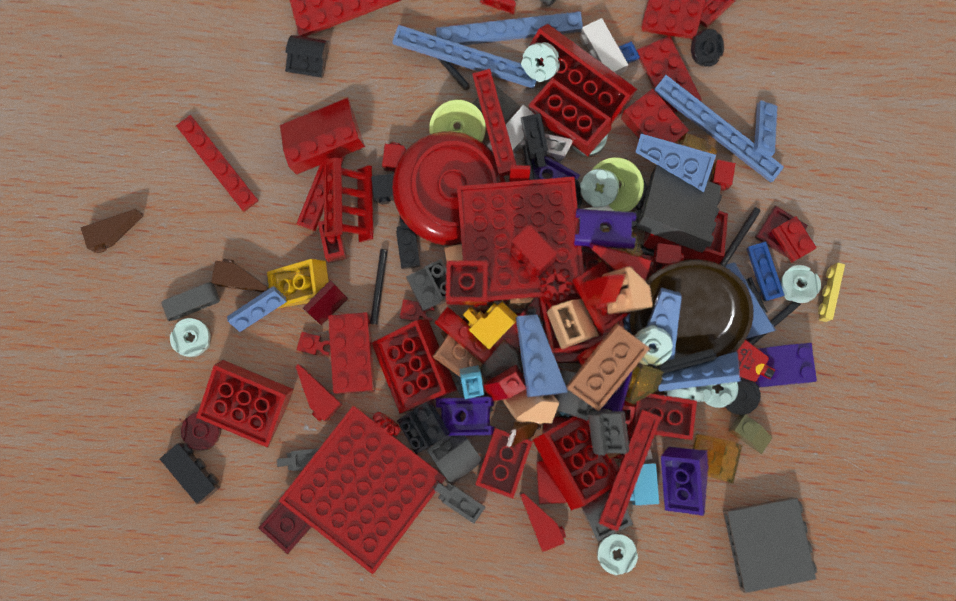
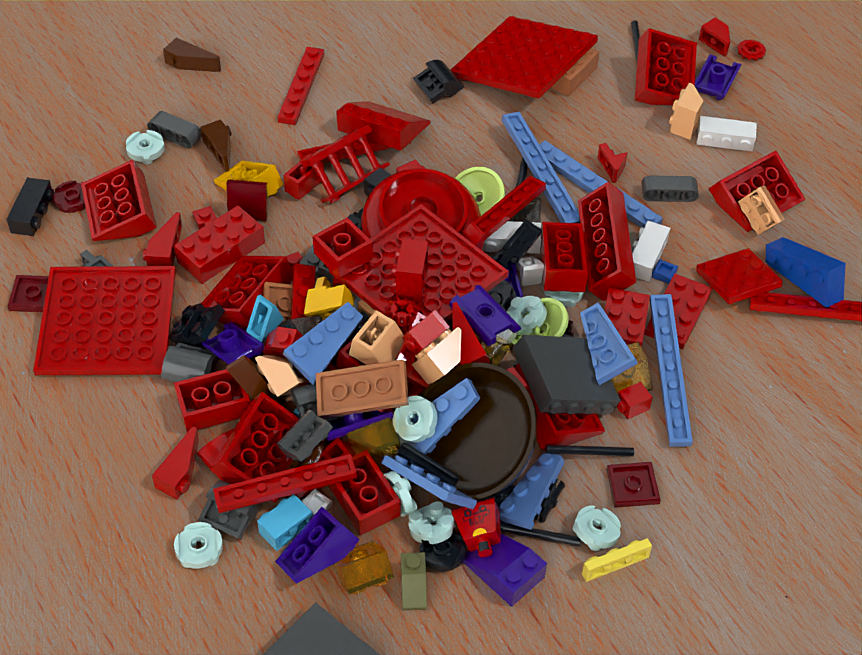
camera: 50 degrees right, 30 degrees down
(256, 309) = (203, 165): medium blue plate -> none
(378, 287) = (294, 232): black bar -> none
(386, 424) = (177, 298): red gear -> none
(459, 501) = (150, 391): dark grey hinge -> none
(530, 63) = (586, 206): light aqua plate -> none
(707, 47) = (731, 316): black tile -> none
(765, 128) = (710, 404): medium blue plate -> none
(765, 271) = (580, 492): blue plate -> none
(793, 239) = (634, 493): red plate -> none

